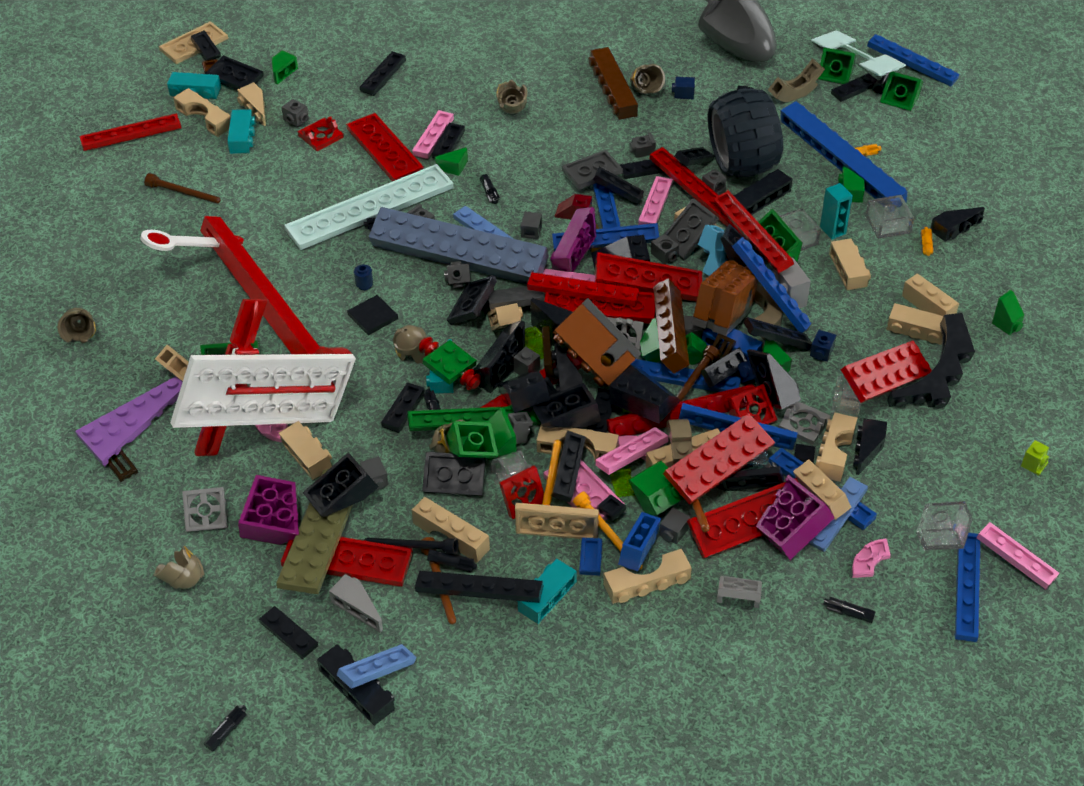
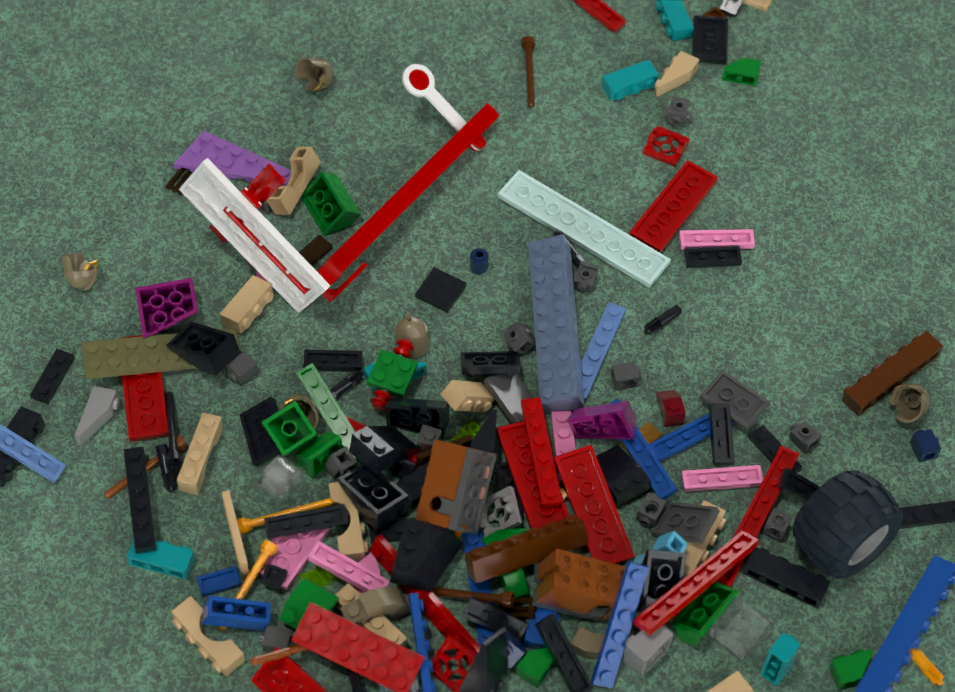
camera: 65 degrees right, 10 degrees up
(192, 103) = (646, 24): tan arch -> none
(219, 494) = (139, 257): light grey piece -> none
(382, 73) = (785, 159): black plate -> none
(453, 161) = (683, 273): green slope -> none
(511, 97) = (802, 282): dark tan helmet -> none
(517, 480) = (259, 484): red piece -> none

